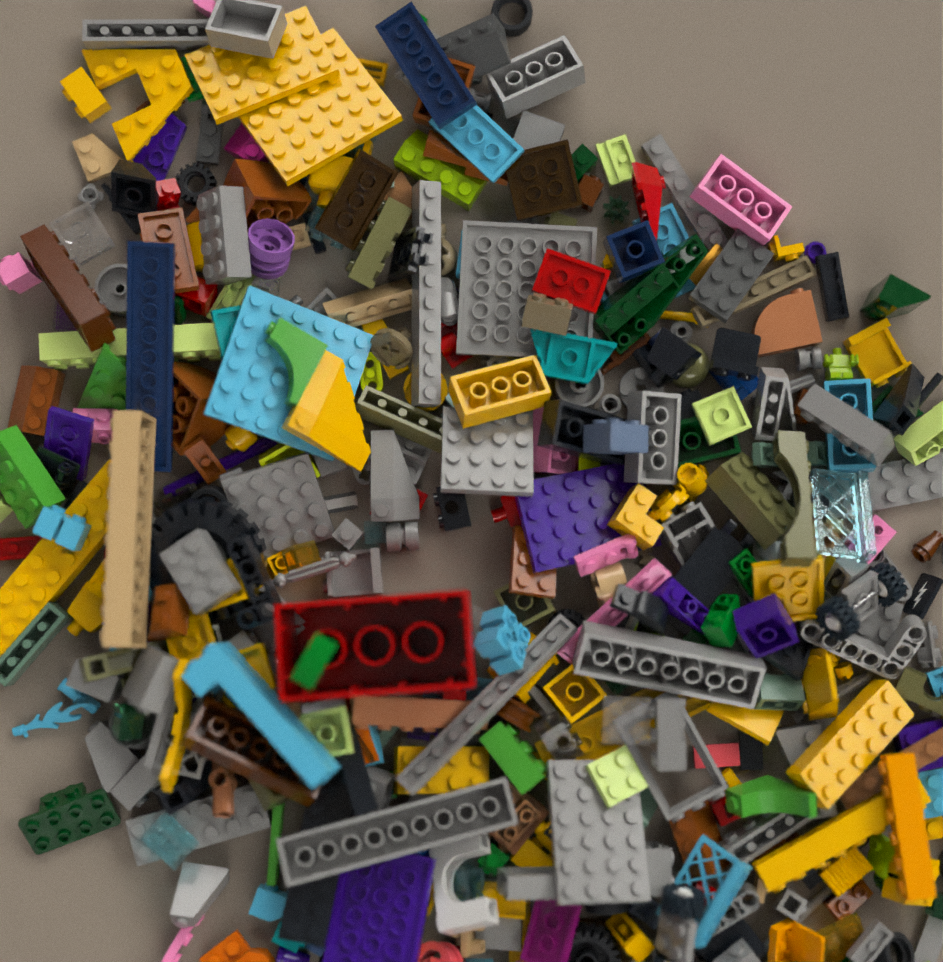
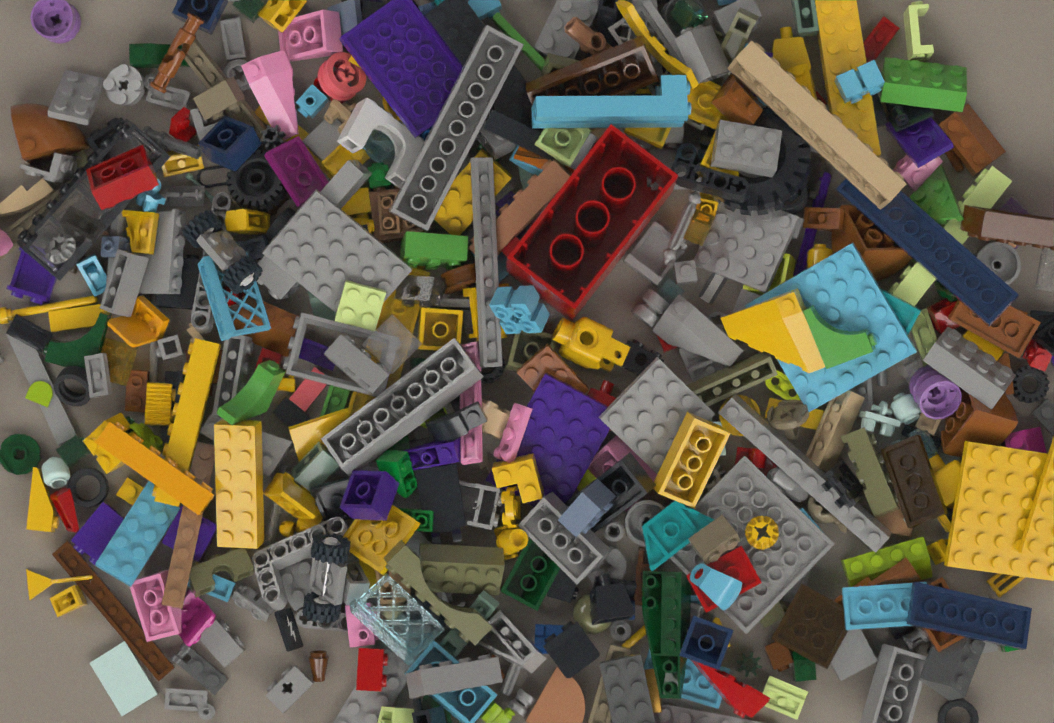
camera: 135 degrees right, 0 degrees up
(65, 397) = (955, 161): none -> reddish brown helmet
(302, 263) = (905, 408): none -> light aqua head
(313, 661) = (617, 168): green slope -> none
(336, 282) = (887, 424): none -> light aqua hips
(393, 139) = (937, 550): none -> yellow tile
(472, 553) = (589, 343): none -> yellow piece
(499, 292) = (760, 522): none -> yellow gear
(583, 280) = (717, 586): none -> medium azure piece
(685, 781) = (314, 353): none -> dark purple plate
(709, 725) = (335, 400): none -> bright green plate
(721, 415) = (537, 599): yellowish green tile -> none
(897, 499) = (371, 669): none -> red brick

